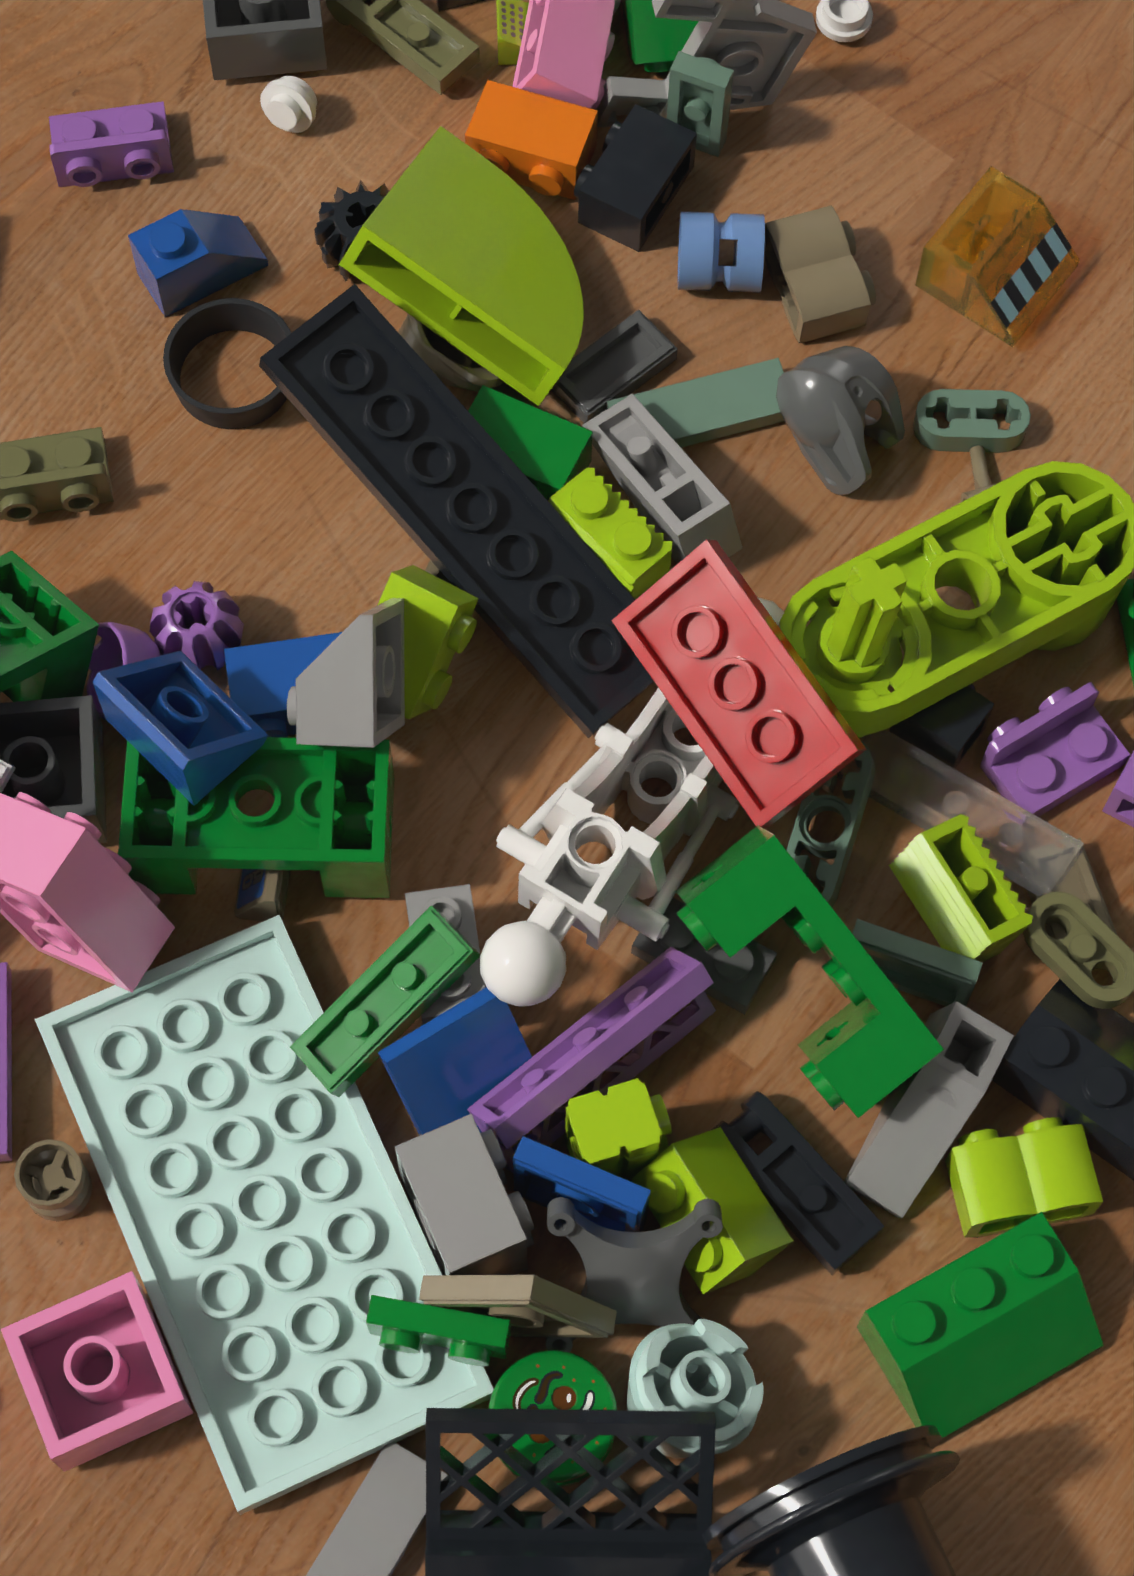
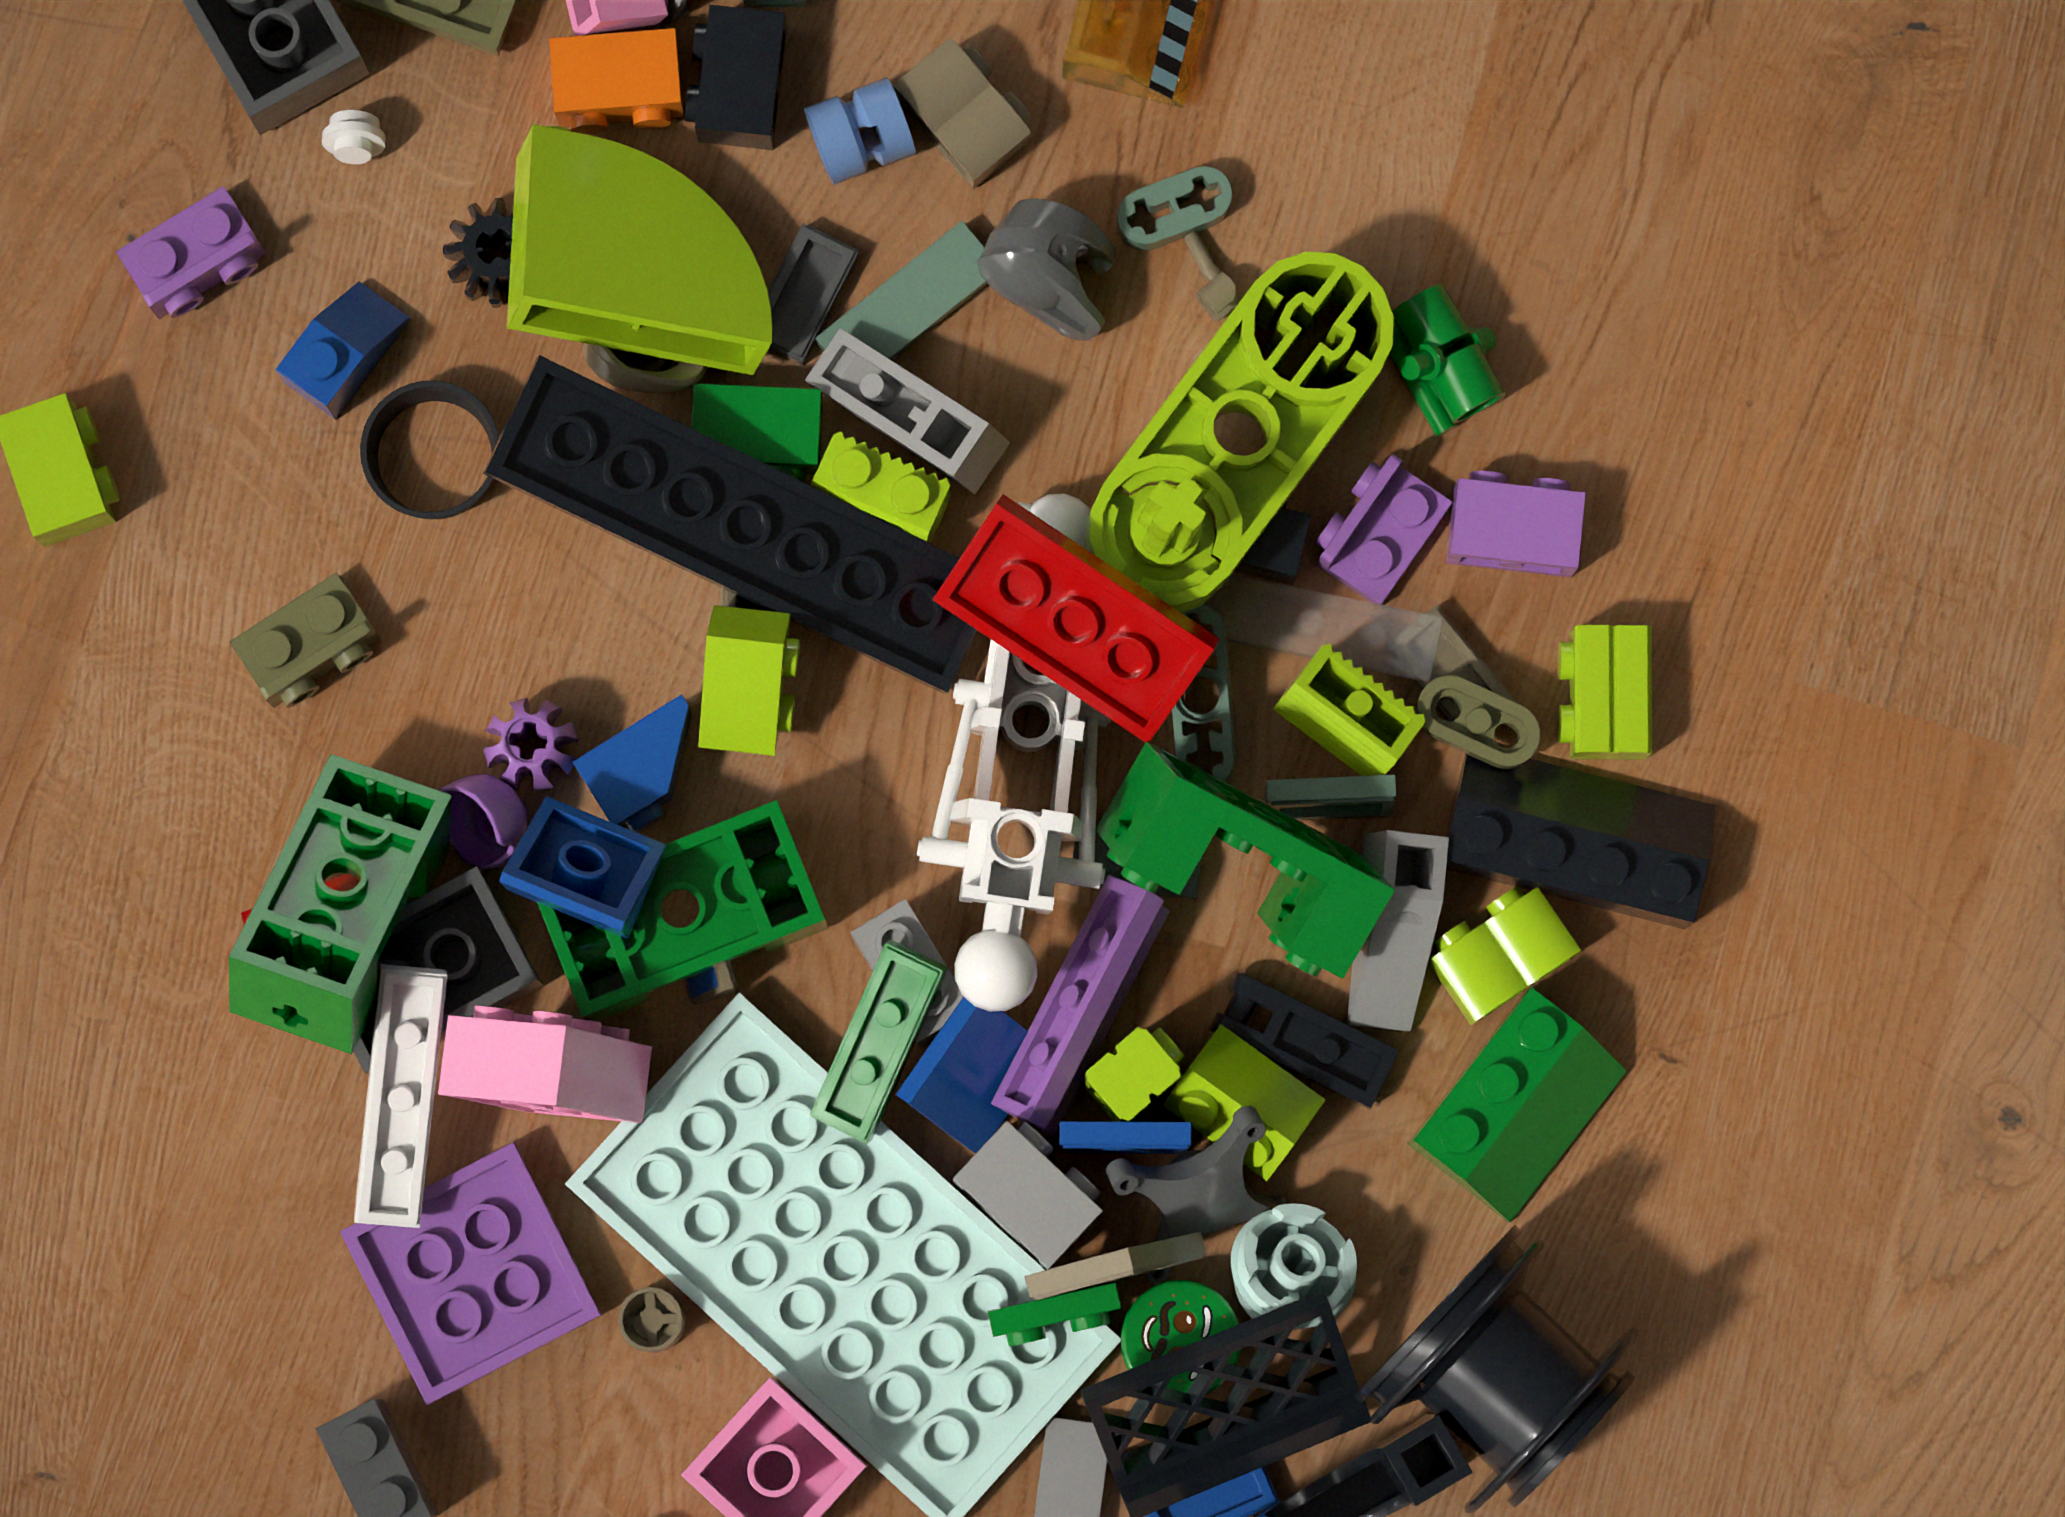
camera: 25 degrees left, 15 degrees up
(355, 685) = (721, 762): light grey slope -> none

